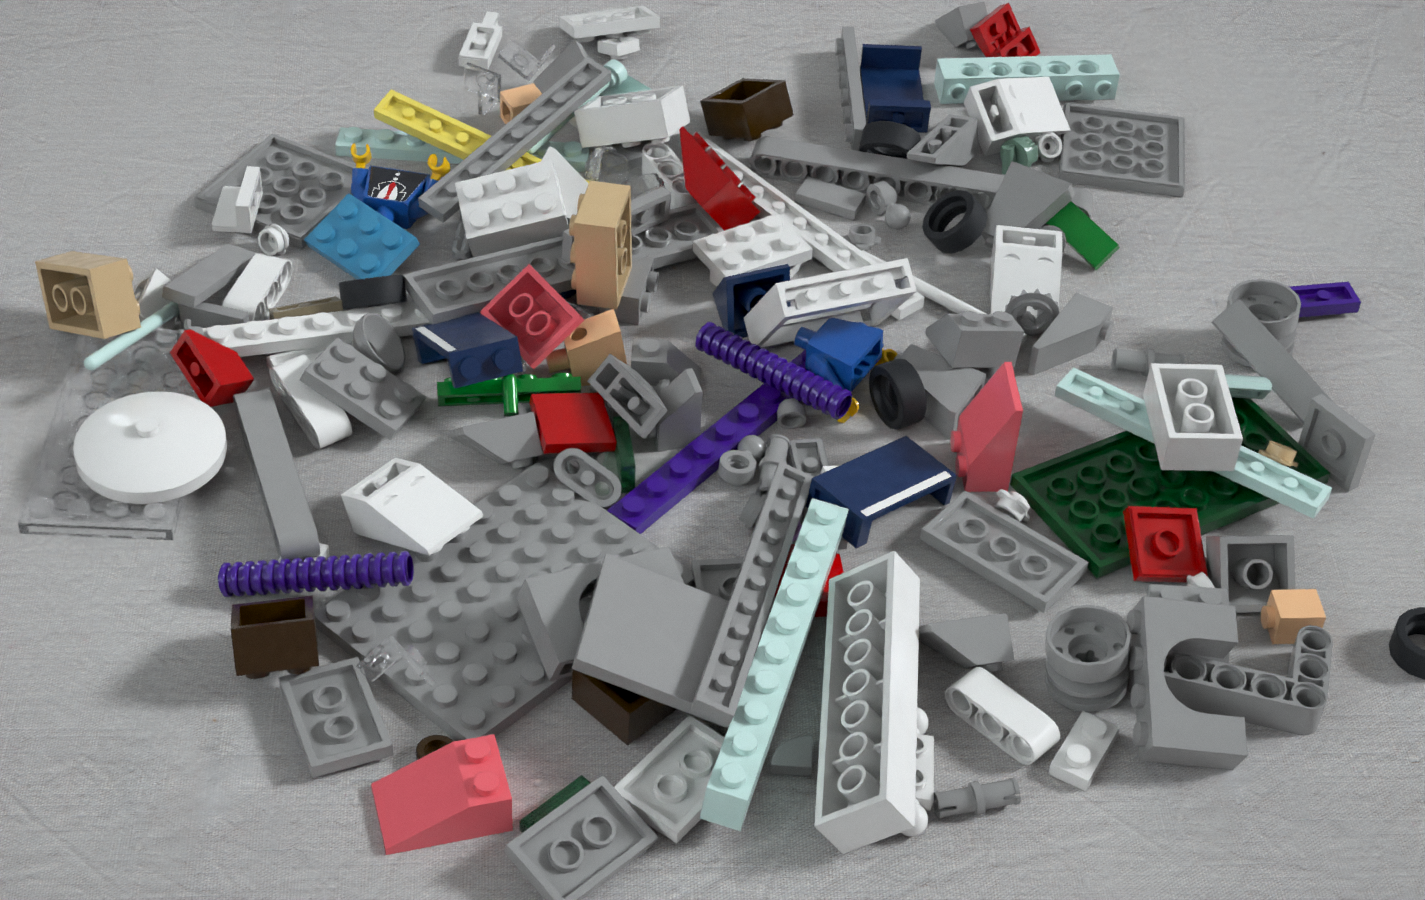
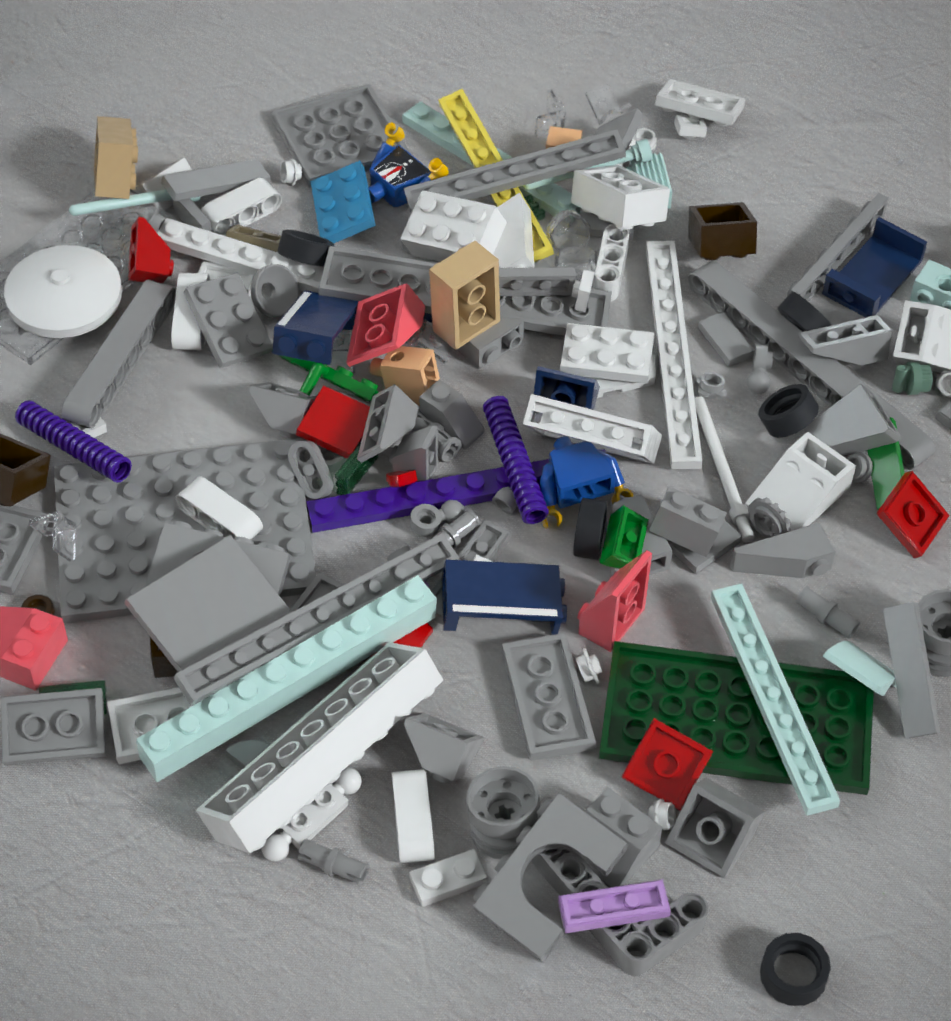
camera: 40 degrees right, 10 degrees up
(239, 205) = (289, 132): white panel -> none
(408, 508) = (170, 426): white slope -> none
(481, 42) = (590, 75): white hinge -> none
(523, 552) = (218, 510): none -> white beam
(678, 443) = (401, 478): none -> red tile
(682, 207) = (582, 290): none -> white plate
(715, 187) = (625, 282): red slope -> none
(941, 384) = (623, 537): none -> green slope
(1134, 252) = (913, 514): none -> red tile
(1192, 417) = (770, 677): white brick -> none
(1260, 674) = (614, 906): none -> lavender tile
(1280, 454) = (831, 749): tan plate -> none
(1289, 612) = (708, 878): light nougat brick -> none
(1336, 441) = (892, 766): light grey plate -> none

